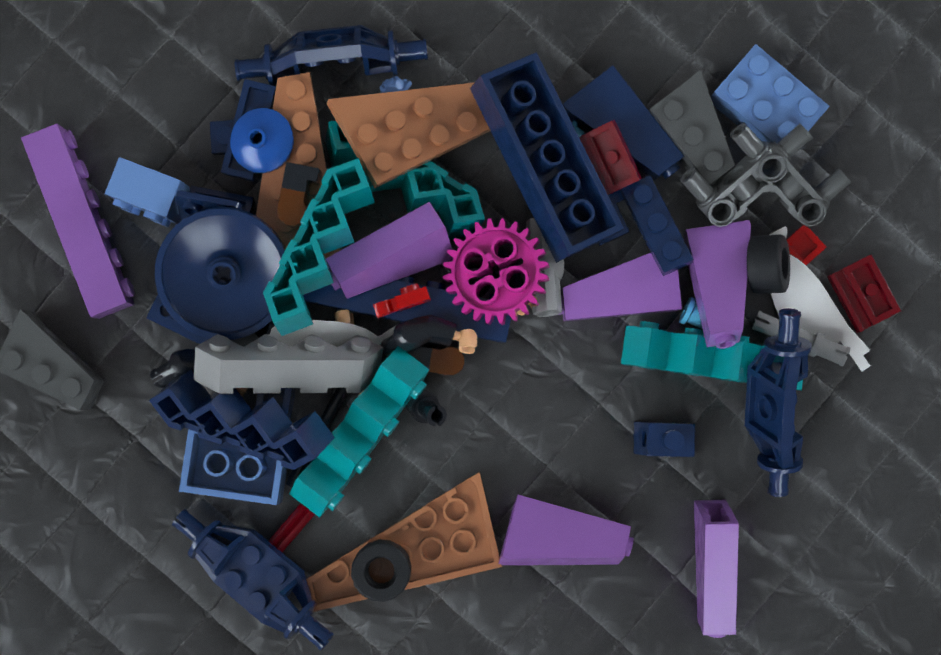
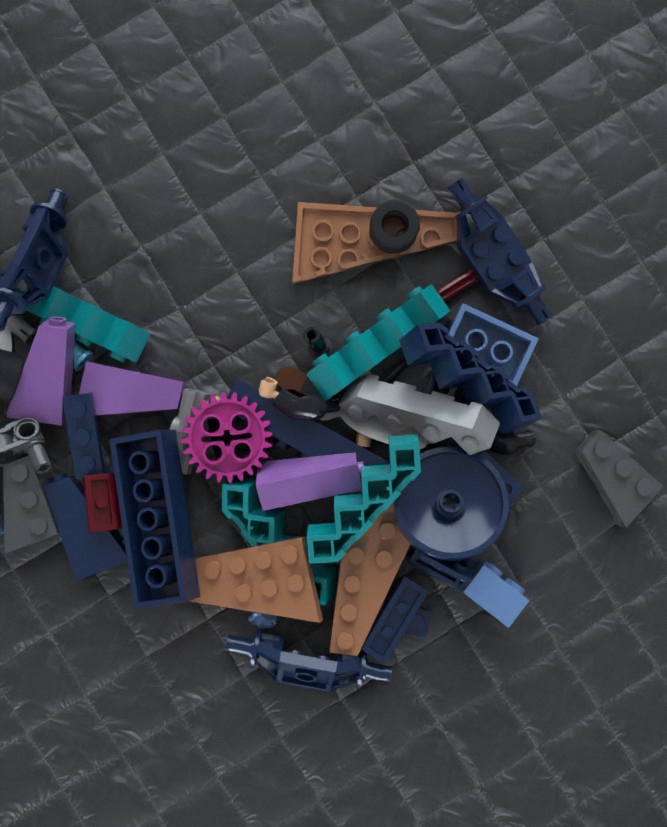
camera: 160 degrees left, 0 degrees up
(78, 221) = (558, 589): medium lavender brick -> none
(275, 143) = (374, 600): blue dish -> none
(295, 192) = (371, 552): leg -> none
(410, 297) = (302, 438): red plate -> none
(561, 536) = (247, 213): medium lavender slope -> none
(664, 439) = (134, 261): dark blue torso -> none
(716, 567) = (126, 150): medium lavender slope -> none

